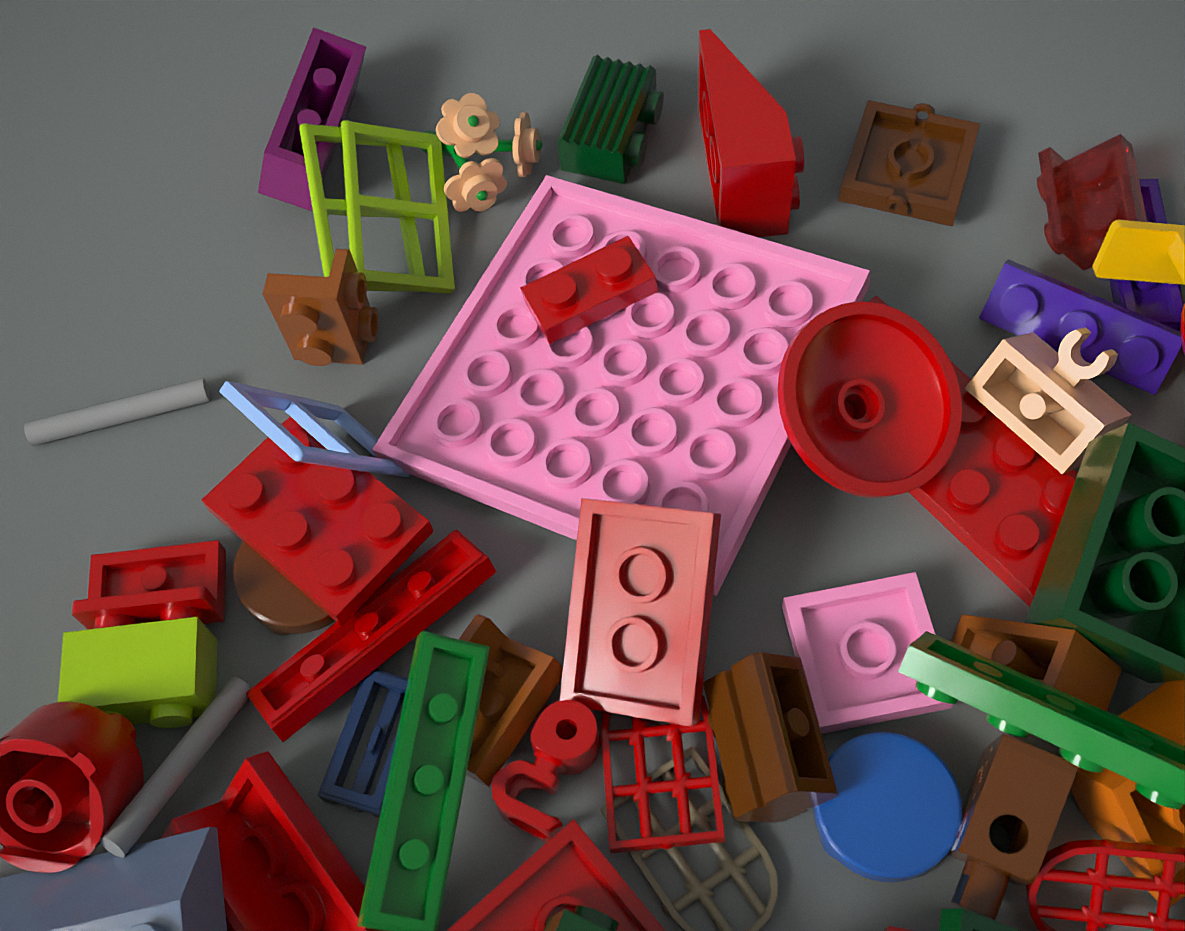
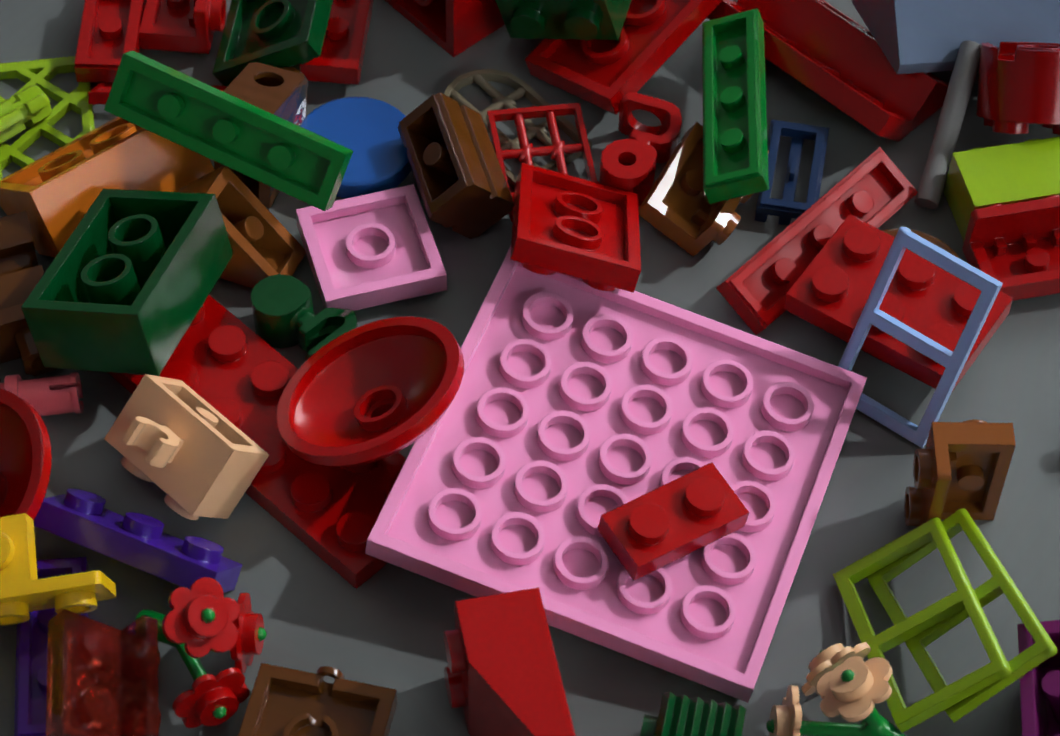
camera: 165 degrees right, 10 degrees down
(957, 573) = (286, 315): none -> dark green leg
(1011, 193) = (206, 622): none -> red plant

